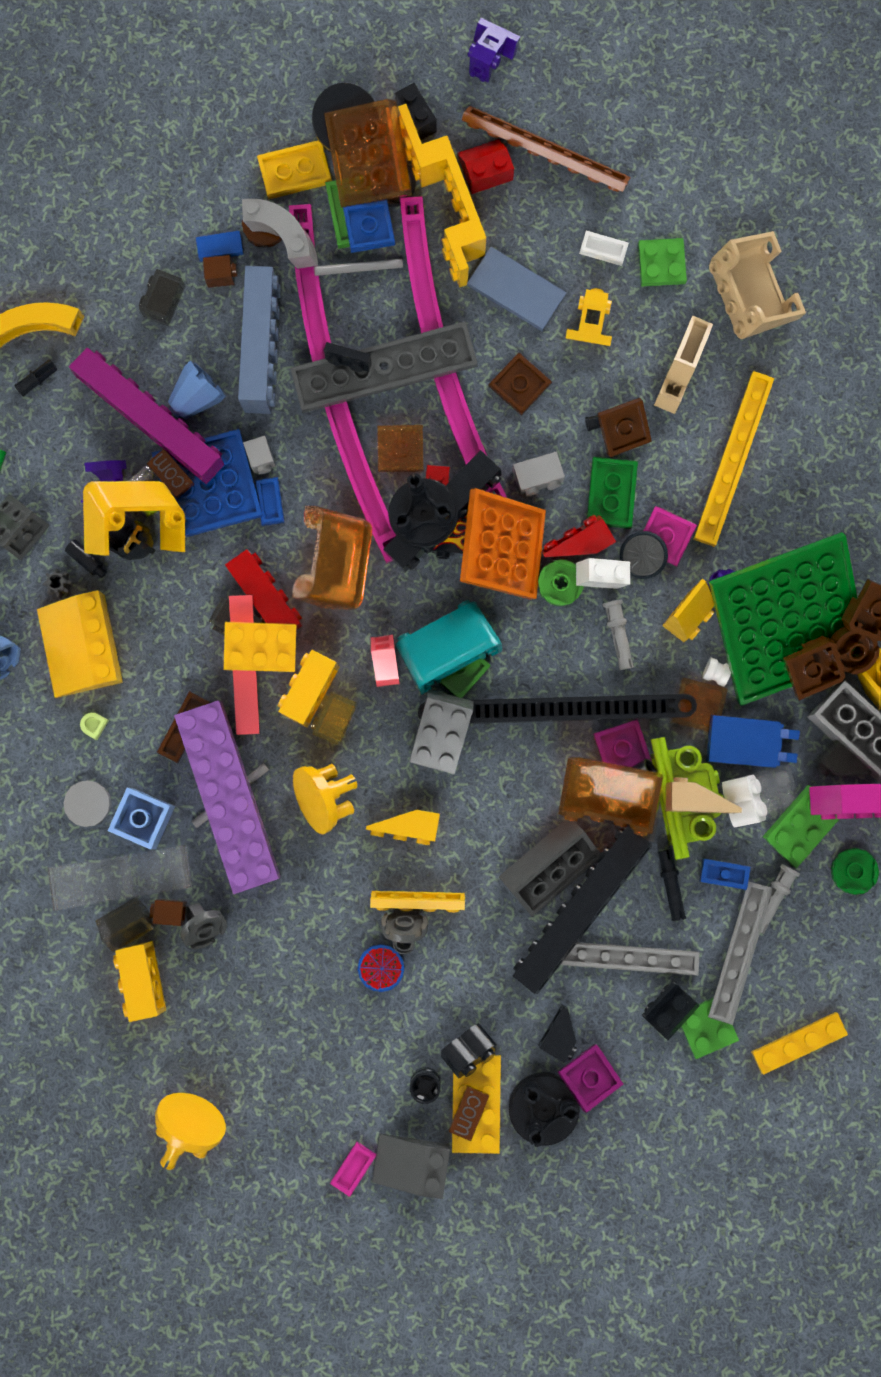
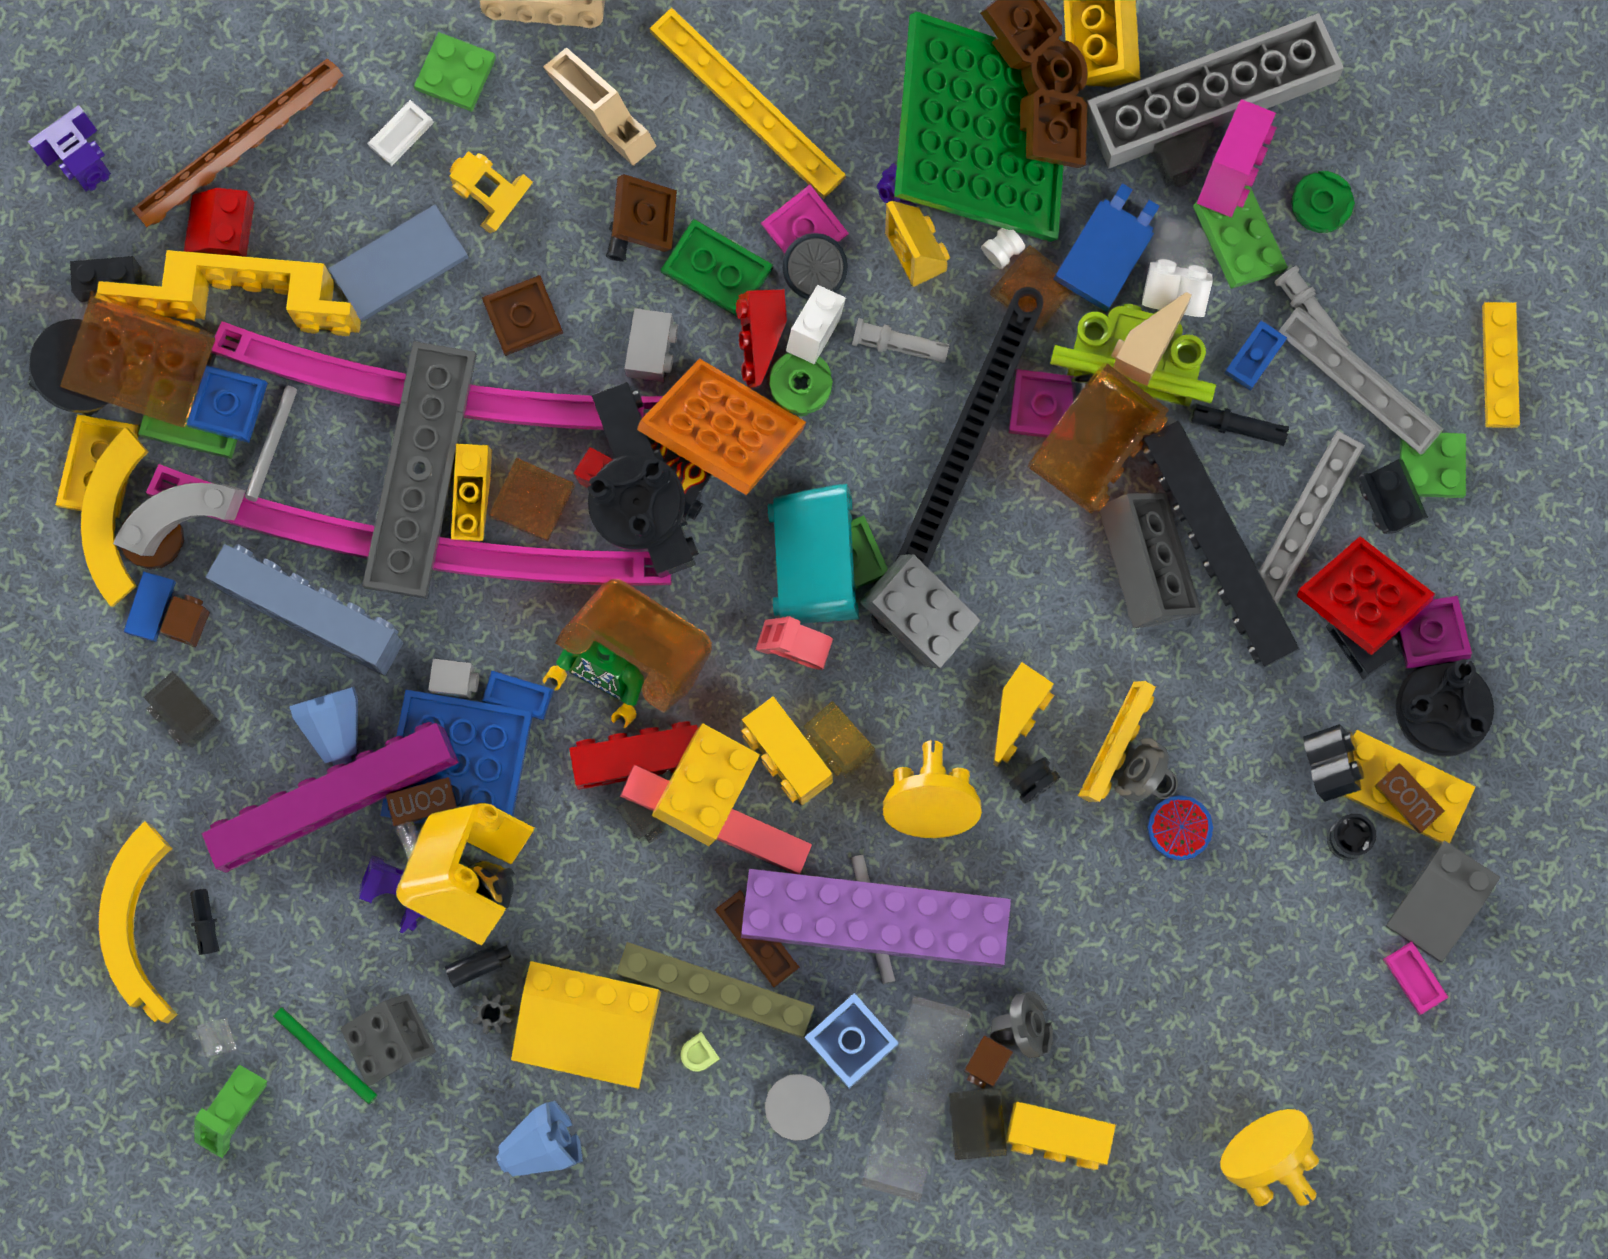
camera: 60 degrees left, 5 degrees down
(135, 716) = (715, 990): none -> olive brick
(263, 184) = (99, 516): none -> yellow tile
(306, 548) = (604, 671): none -> green torso
(349, 357) = (381, 513): black plate -> none
(366, 858) = (1034, 780): none -> black wheel
(386, 406) = (470, 491): none -> yellow slope
(592, 1022) = (1365, 595): none -> red plate

